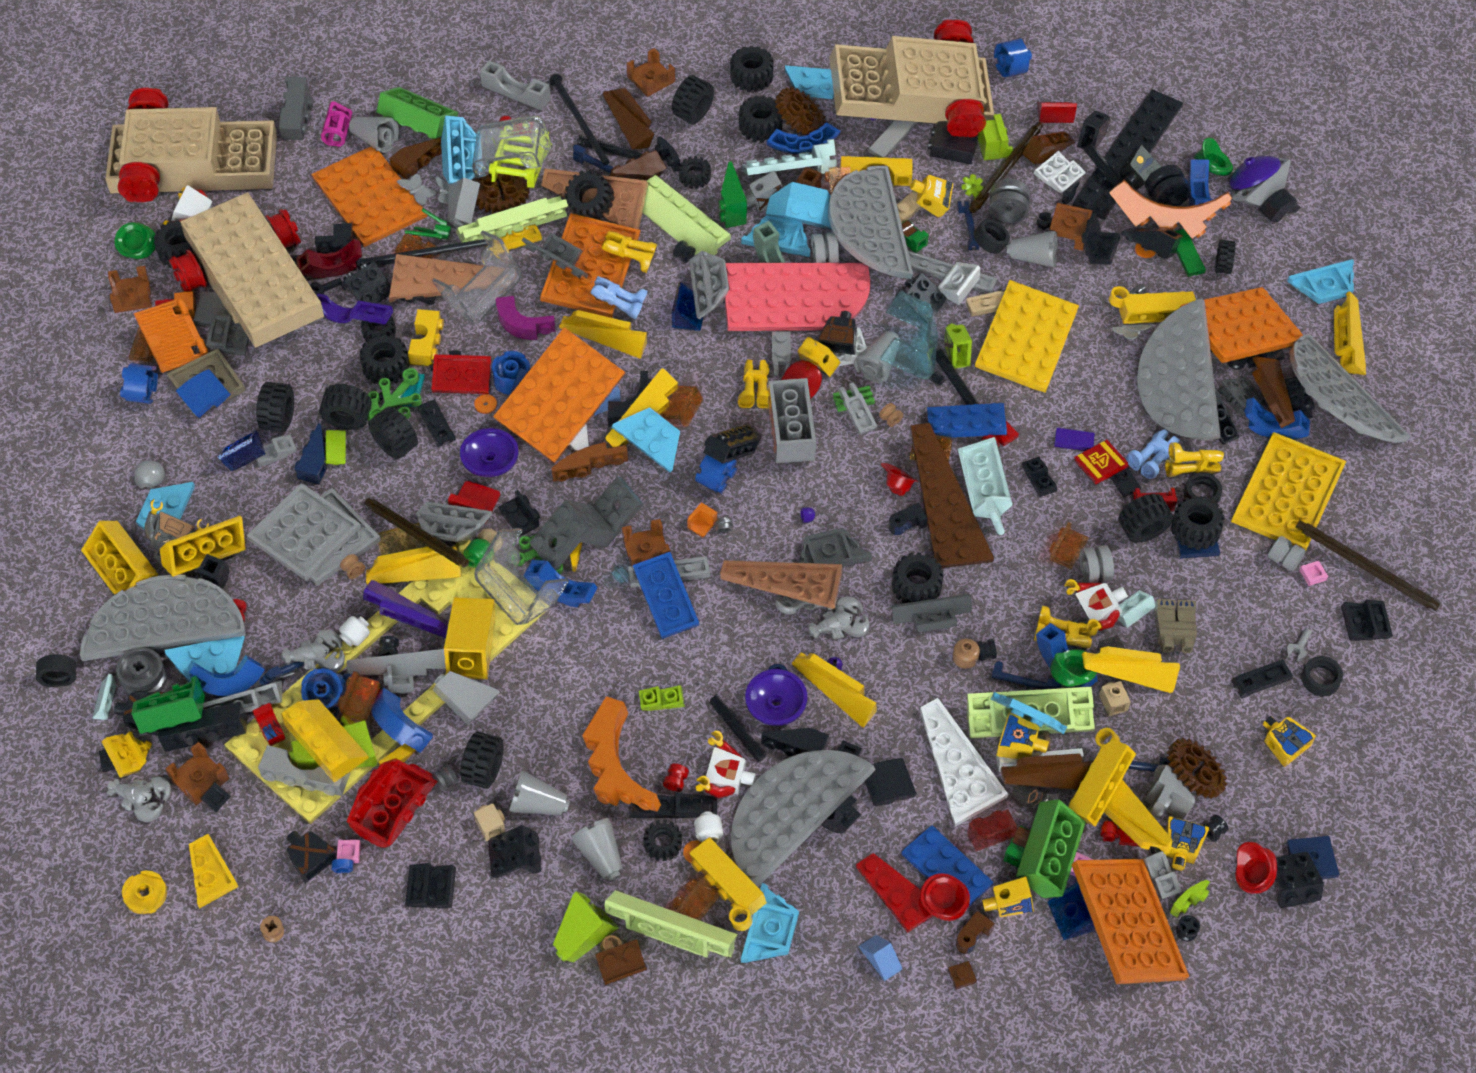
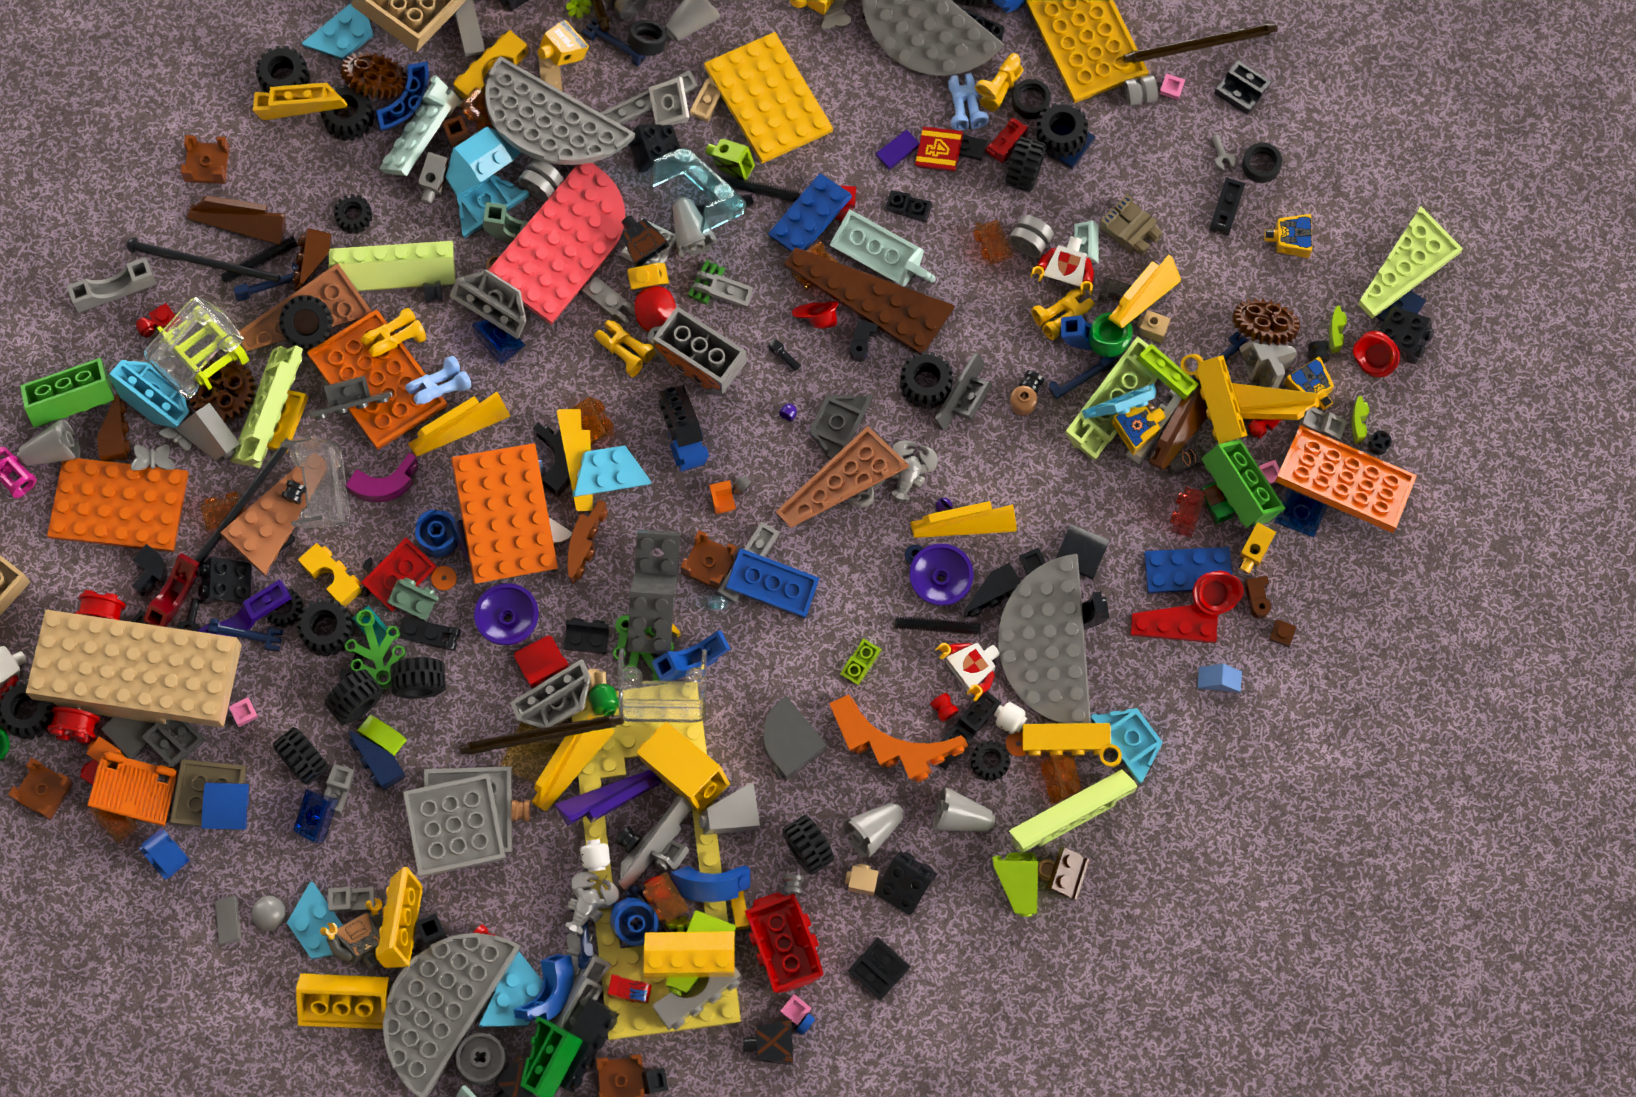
camera: 50 degrees left, 15 degrees up
(125, 457) = (228, 920): none -> light grey slope
(196, 509) = (350, 899): none -> light grey slope
(283, 359) = (243, 712): none -> bright pink plate
(348, 337) = (268, 638): none -> dark blue hinge
(440, 231) = (223, 473): green plant -> none
(450, 394) = (412, 599): none -> sand green bracket
(462, 272) = (294, 492): none -> black wheel
(556, 694) = (790, 740): none -> dark grey brick
(667, 153) = (307, 218): black slope -> none
(692, 99) = (277, 151): black tyre -> none
(733, 201) = (421, 210): green slope -> none
(737, 83) = (296, 100): none -> yellow wedge
(847, 481) = (777, 349): none -> black bar
(891, 414) = (751, 267): medium nougat wheel -> none
(914, 236) = (589, 96): green leg -> none
(964, 775) = (1121, 490): white wing -> none
(1084, 727) = (1167, 371): none -> lime plate
(1246, 825) = (1337, 325): none -> lime slope
(1360, 838) = (1414, 258): none -> yellowish green wing

